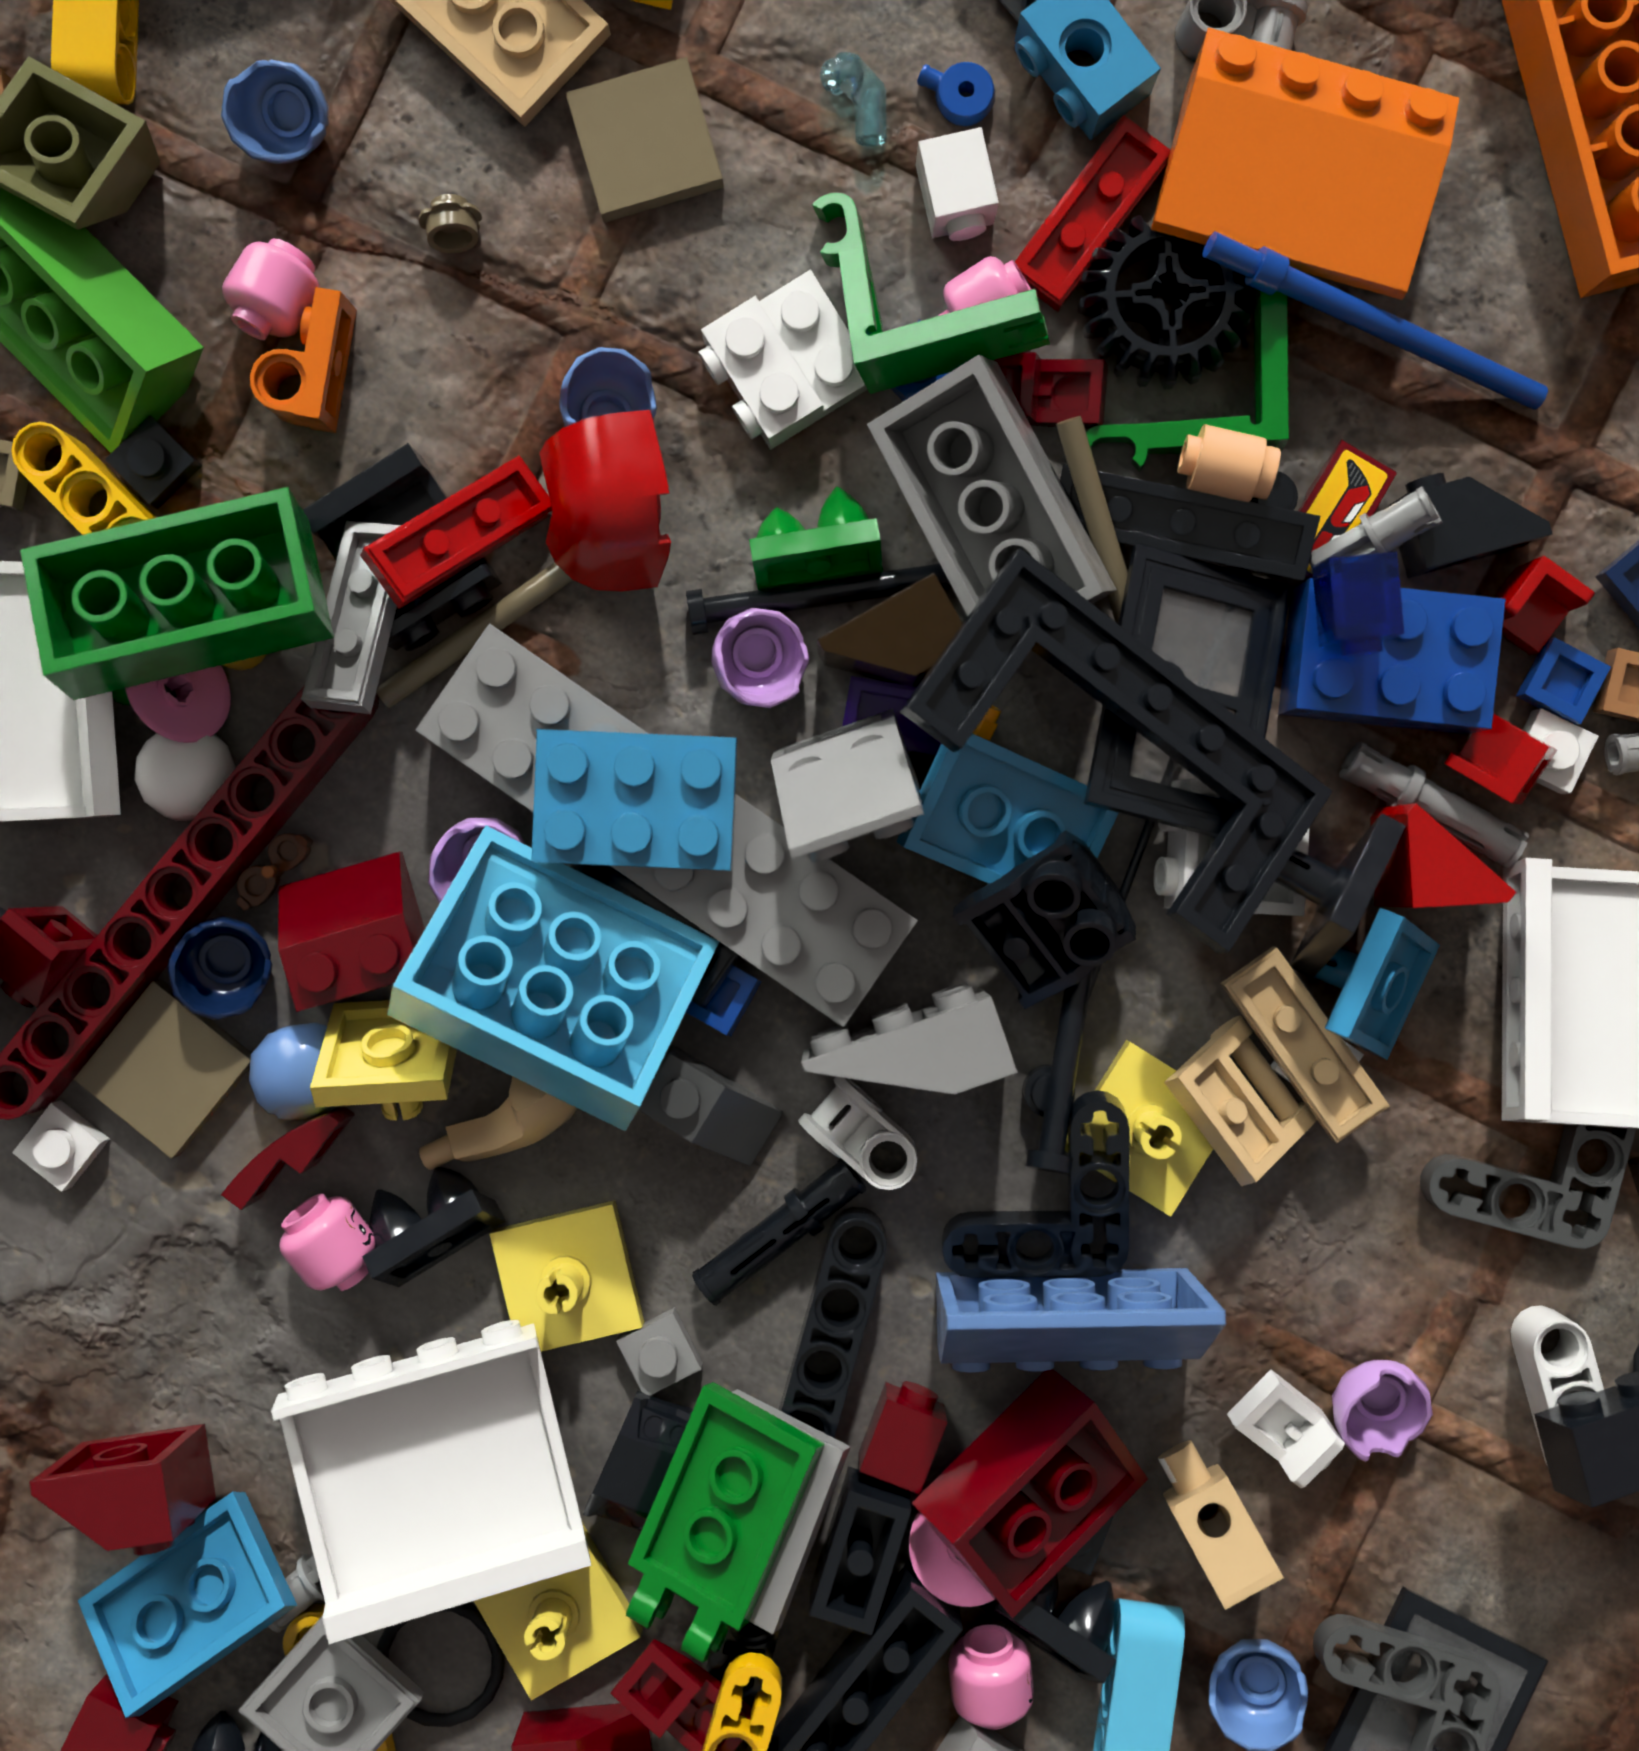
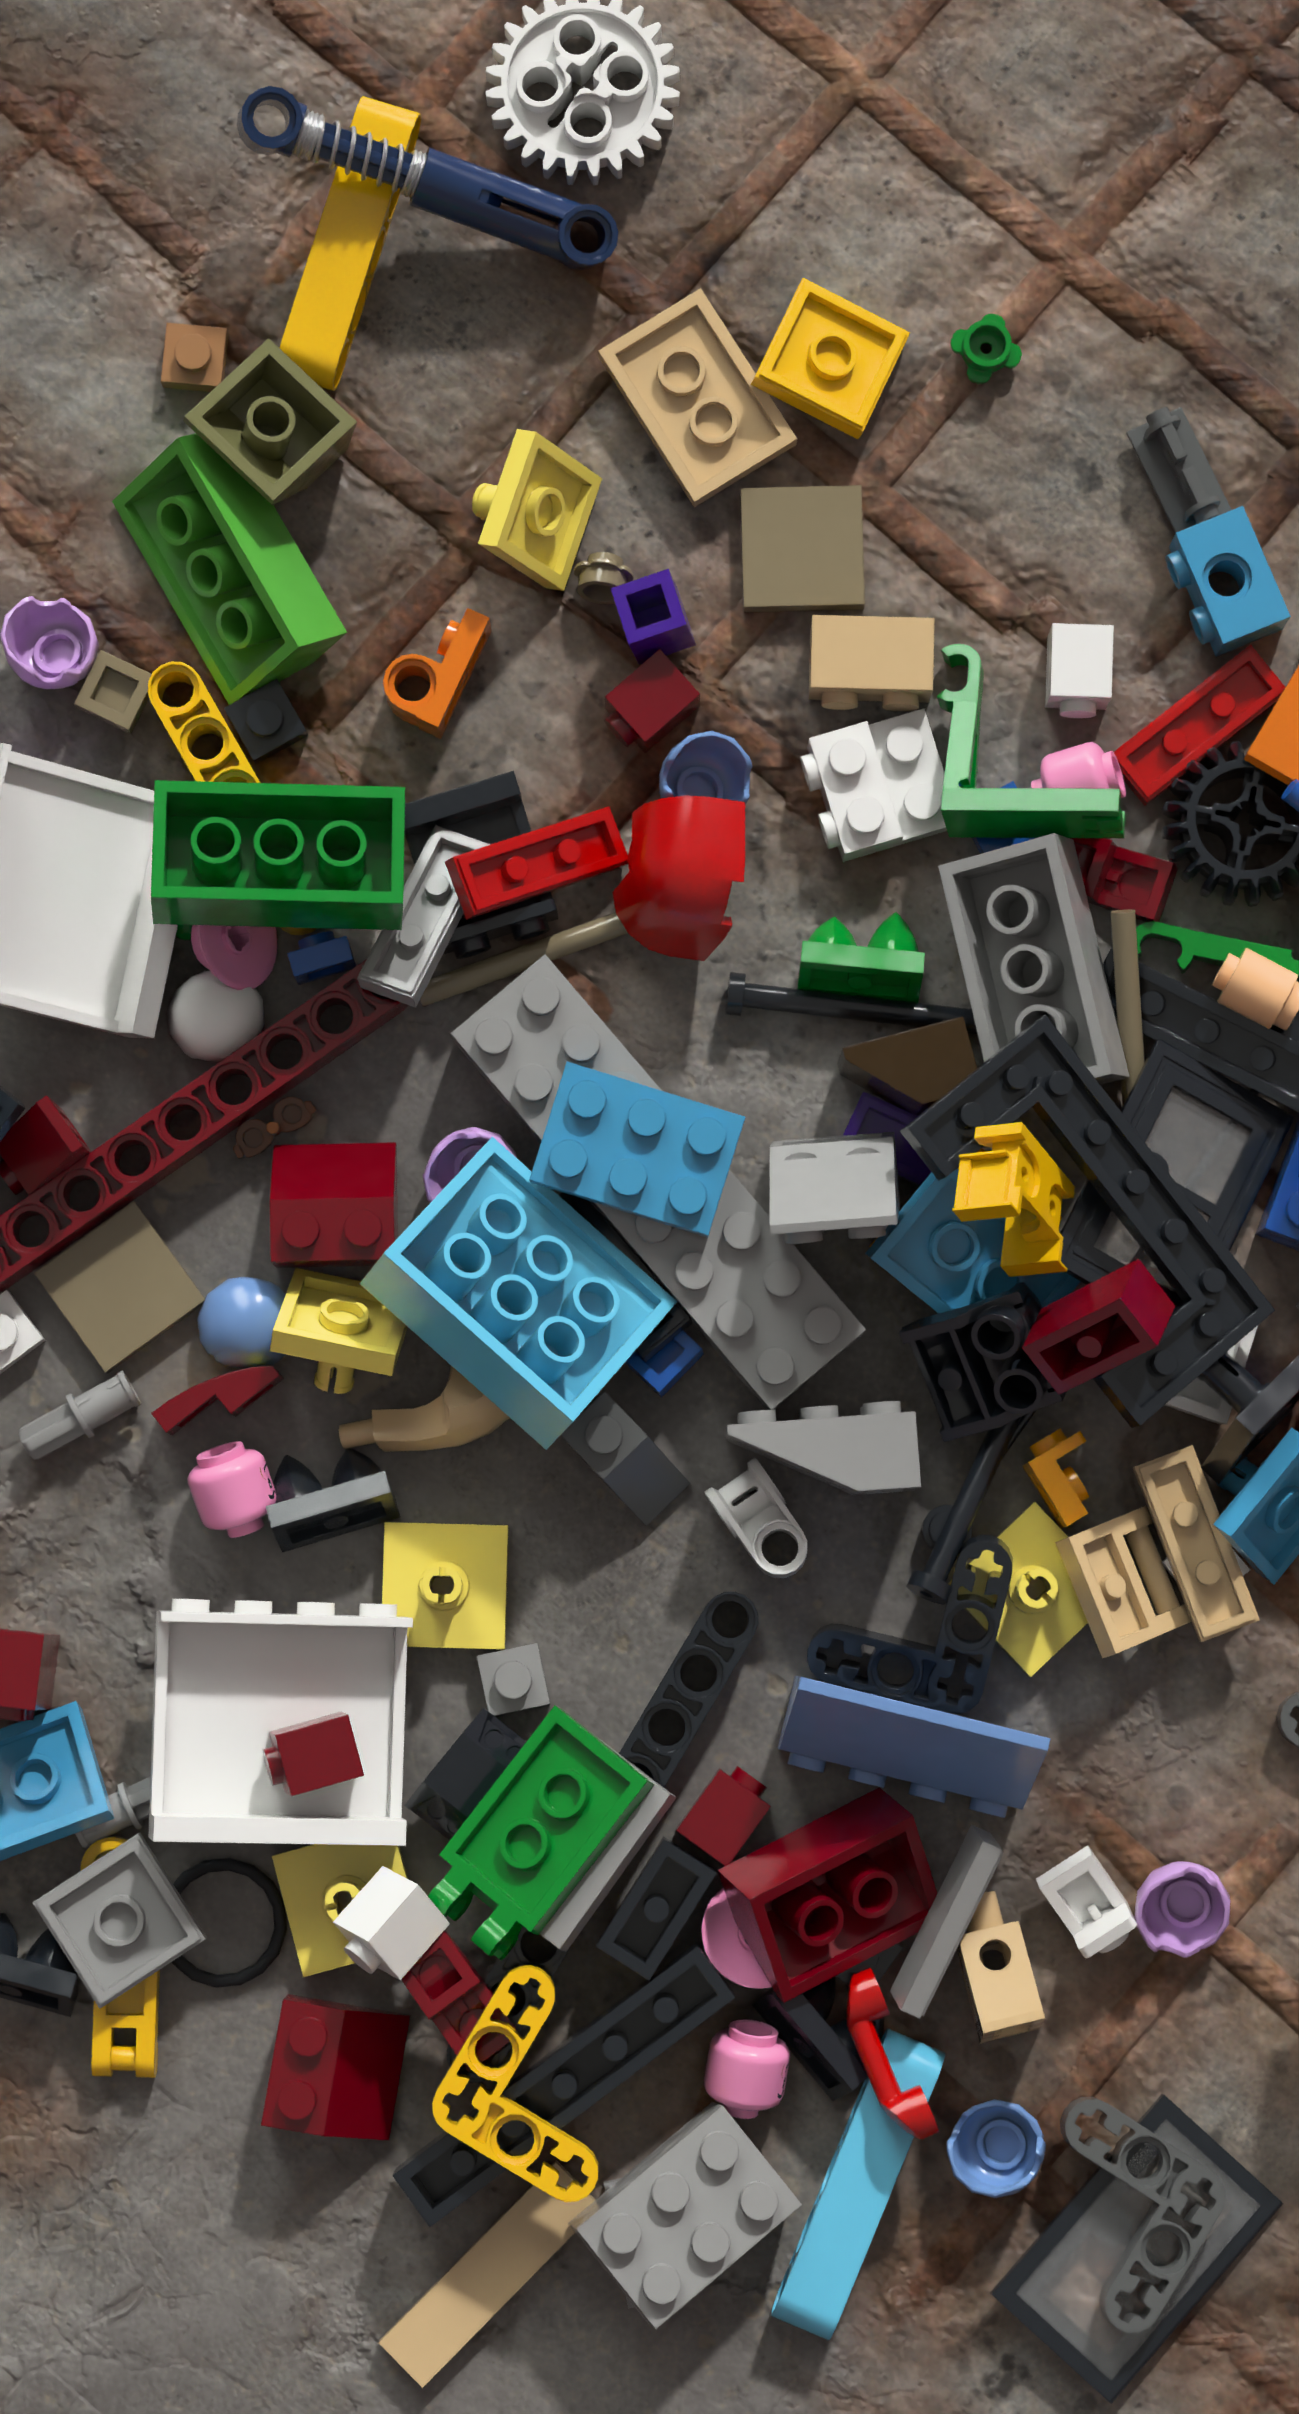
camera: 15 degrees right, 5 degrees down
(159, 1208) = (78, 1416): none -> light grey axle
(220, 968) = (205, 1204): dark blue hair -> none
(269, 686) = (321, 957): none -> blue plate
(270, 289) = (422, 595): bright pink head -> none
(275, 112) = (470, 438): medium blue hair -> none
(361, 164) = (537, 509): none -> light yellow tile
(473, 1500) = (313, 1754): none -> dark red brick
(508, 245) = (653, 616): none -> dark purple brick
(532, 337) = (650, 703): none -> dark red brick
(595, 1654) = (390, 1924): none -> white brick
(744, 233) = (871, 661): none -> tan brick
(760, 657) = (783, 1051): lavender hair -> none
(779, 1231) = (726, 1565): black pin -> none
(852, 76) = (1016, 556): clear light blue arm -> none
(956, 79) = (1104, 570): blue piece -> none
(1037, 739) = (1011, 1178): none -> yellow piece
(1150, 1023) = (1058, 1488): none -> light orange bracket
(1154, 1494) = (946, 1921): none -> light grey tile
(1159, 859) = (1099, 1327): none -> dark red brick
(1165, 1689) = (908, 2107): none -> red bar

